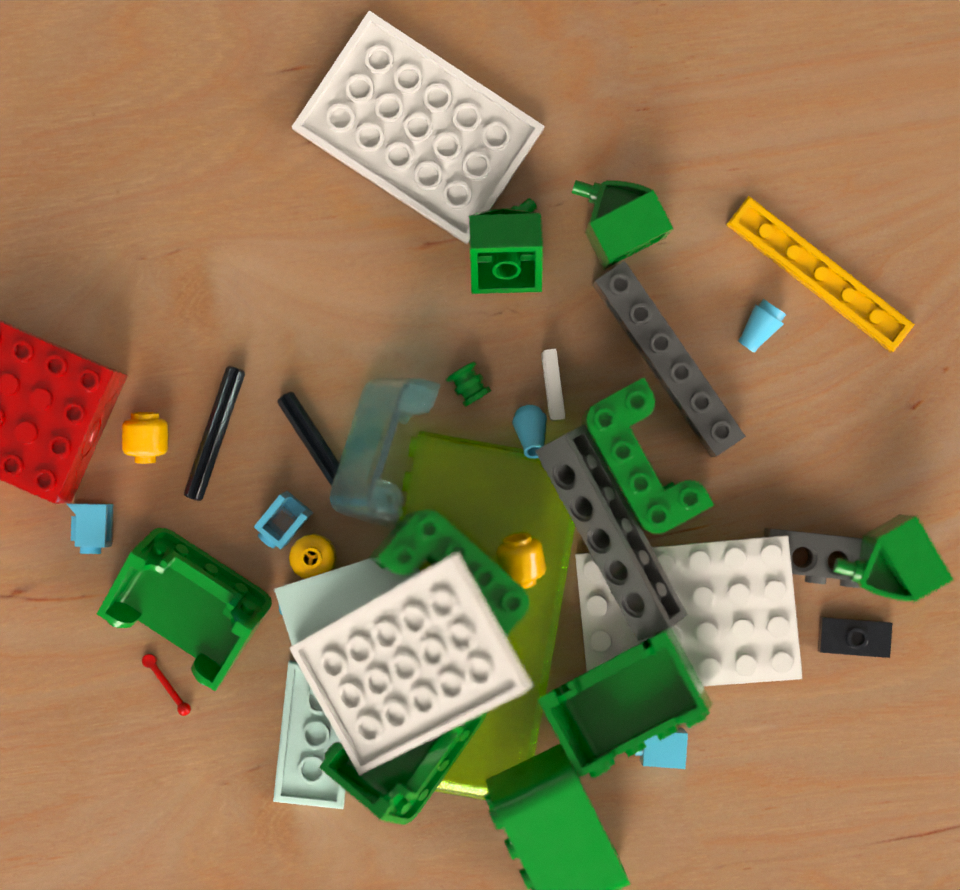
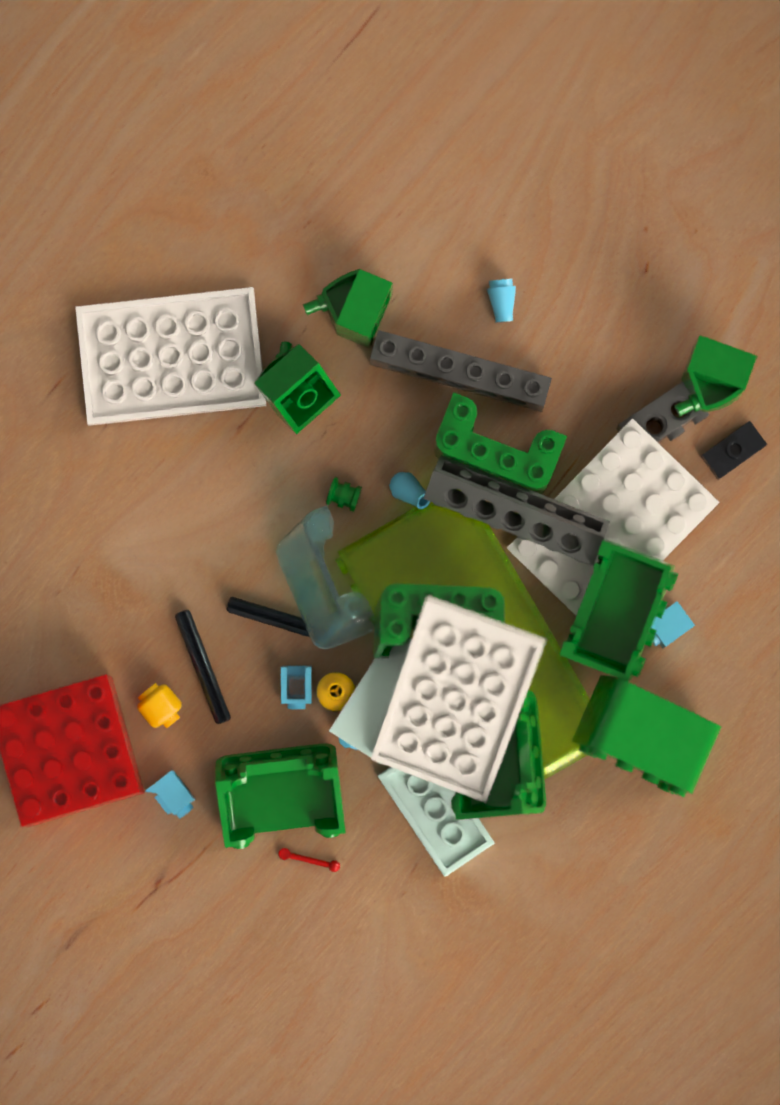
camera: 40 degrees left, 5 degrees down
(522, 559) = (473, 572): yellow head -> none
(553, 385) = (399, 449): white tile -> none
(820, 274) = (512, 235): yellow tile -> none

